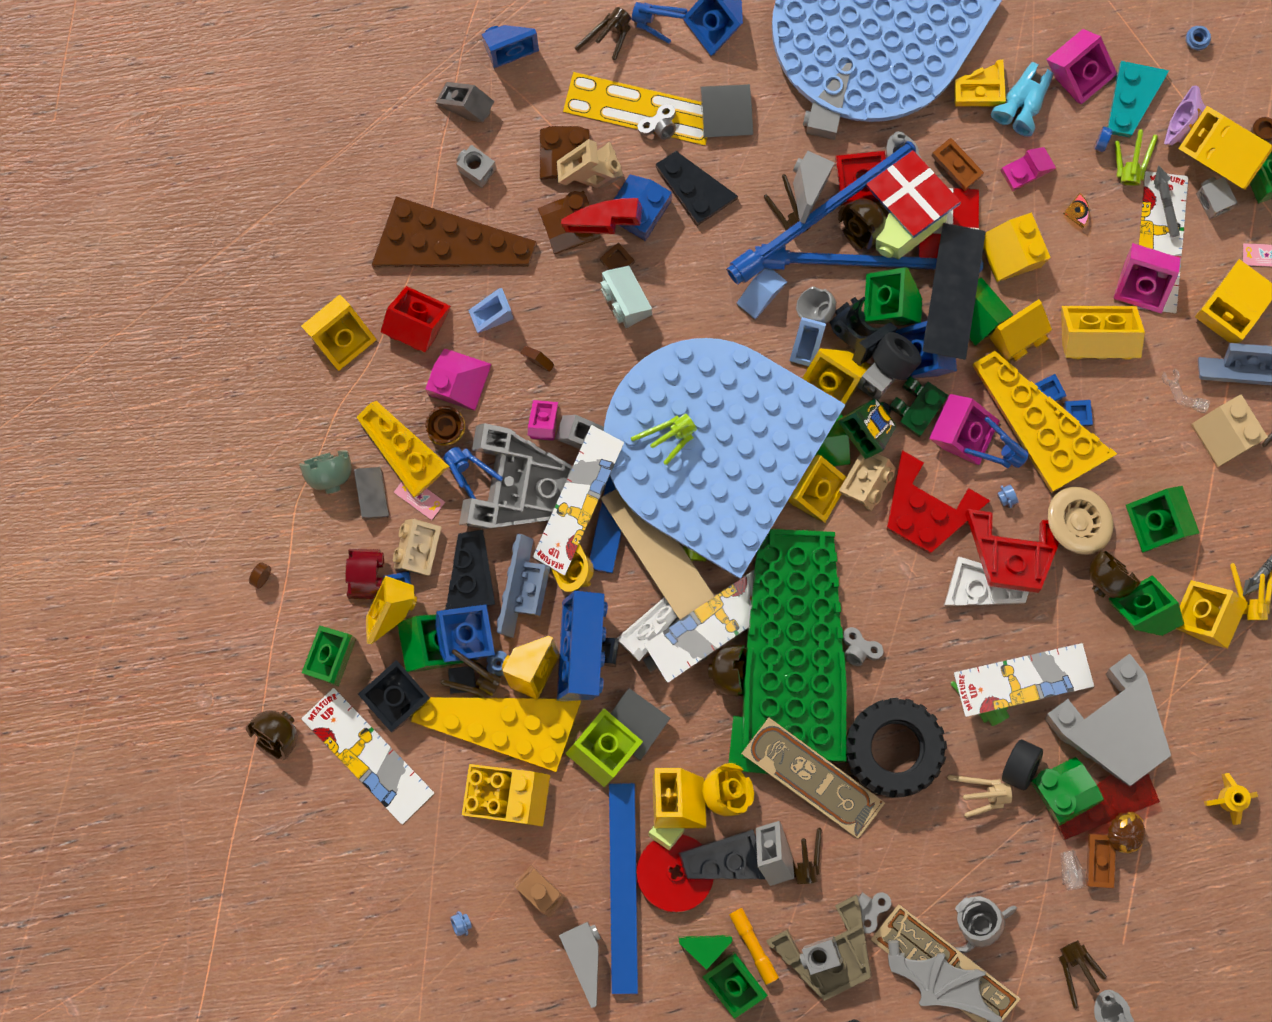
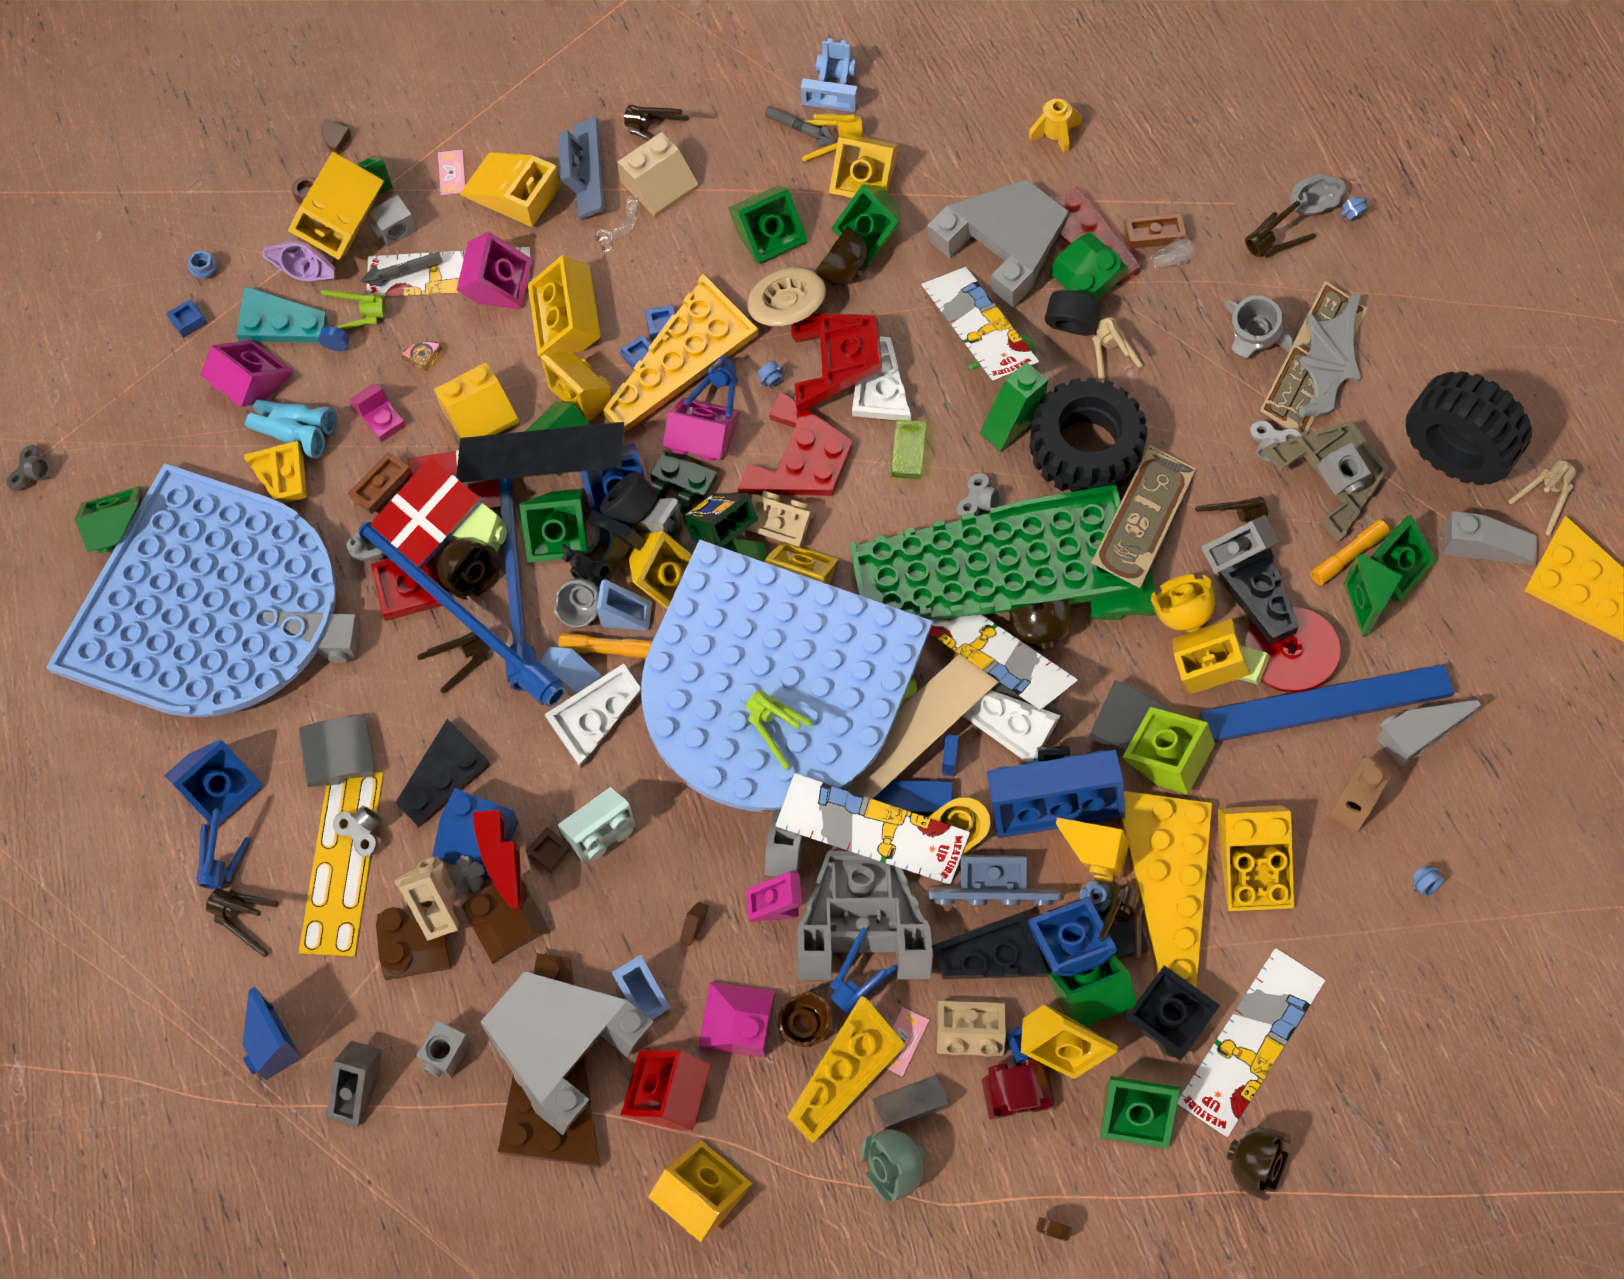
camera: 100 degrees left, 15 degrees down
(471, 240) = (546, 1030): none -> light grey wedge
(611, 194) = (467, 875): none -> light grey plant
(633, 575) = (949, 756): none -> blue tile
(722, 306) = (592, 712): none -> white wing
(783, 310) = (585, 644): none -> light orange piece
(810, 179) = (424, 629): light grey slope -> none
(917, 598) = (908, 449): none -> clear neon green tile
(931, 690) = (1014, 407): none -> green slope
(1126, 832) = (1119, 205): reddish brown hair -> none
(1147, 22) = (186, 318): none -> blue tile

